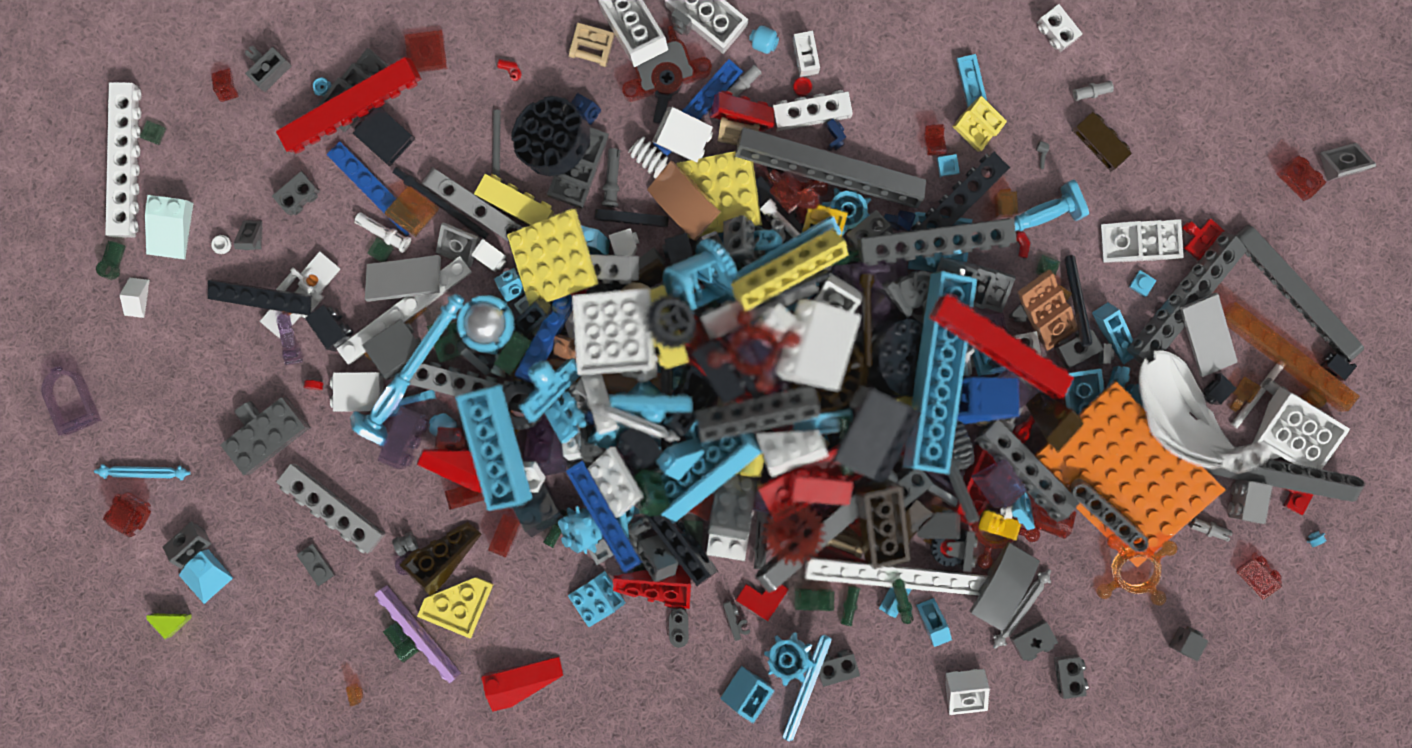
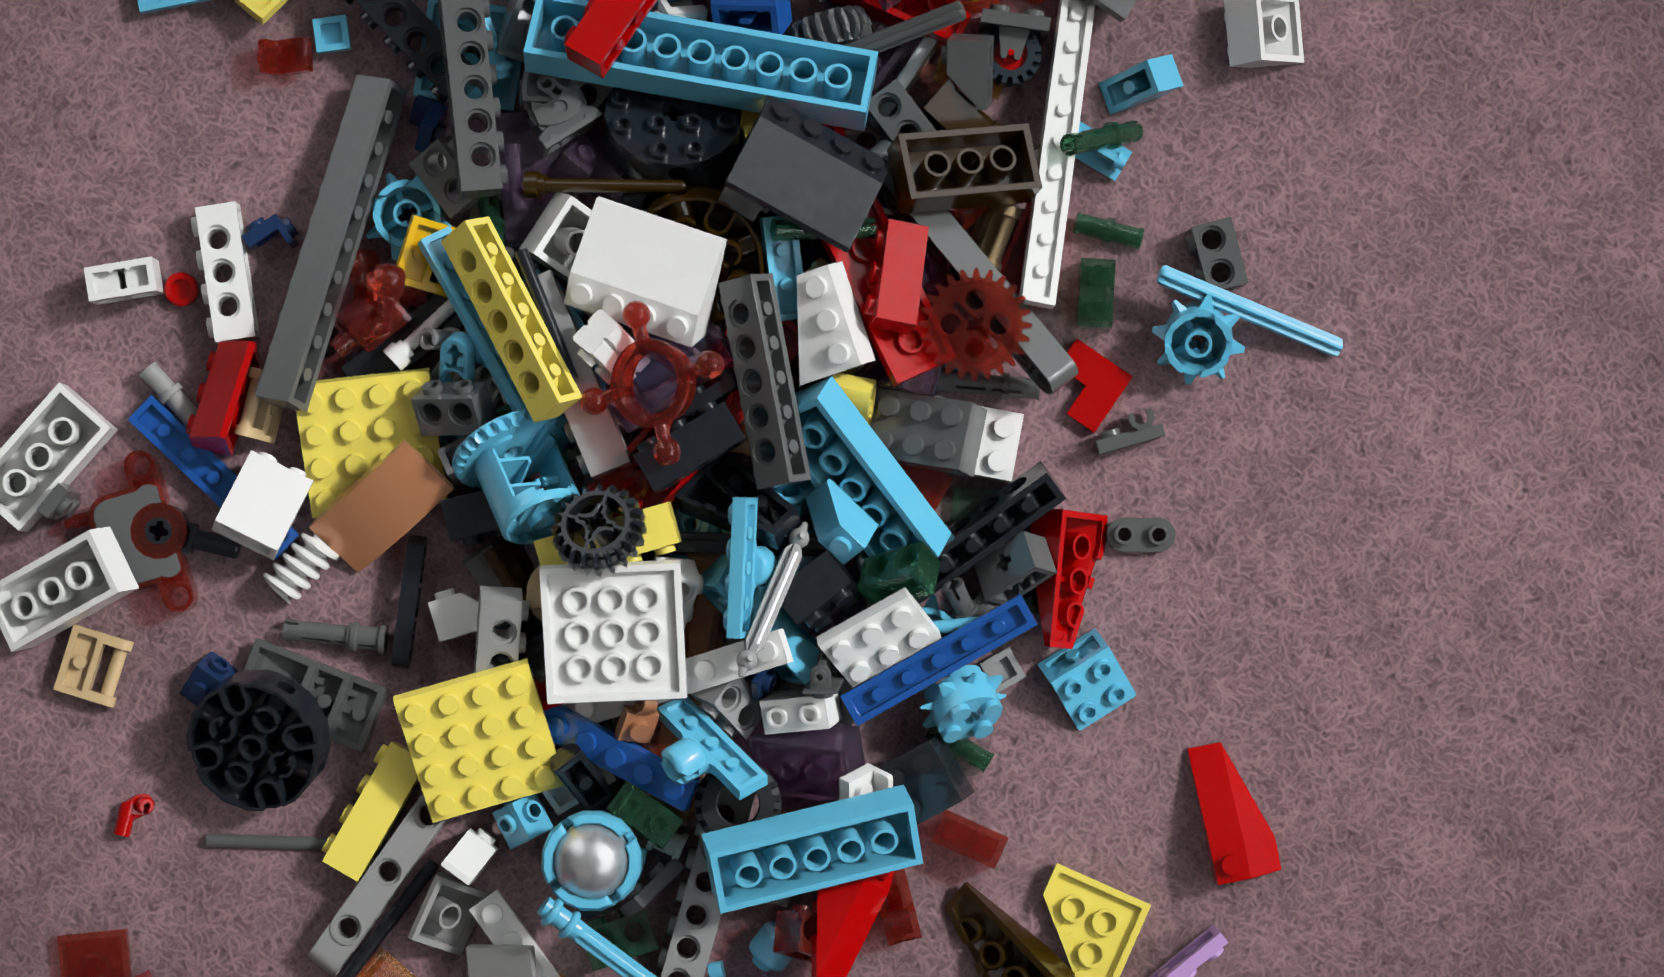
camera: 85 degrees left, 0 degrees up
(560, 419) = (766, 731): medium azure plate -> none
(596, 241) = (450, 662): medium azure slope -> none
(747, 694) = (1258, 415): medium azure slope -> none
(764, 39) = (95, 355): medium azure head -> none

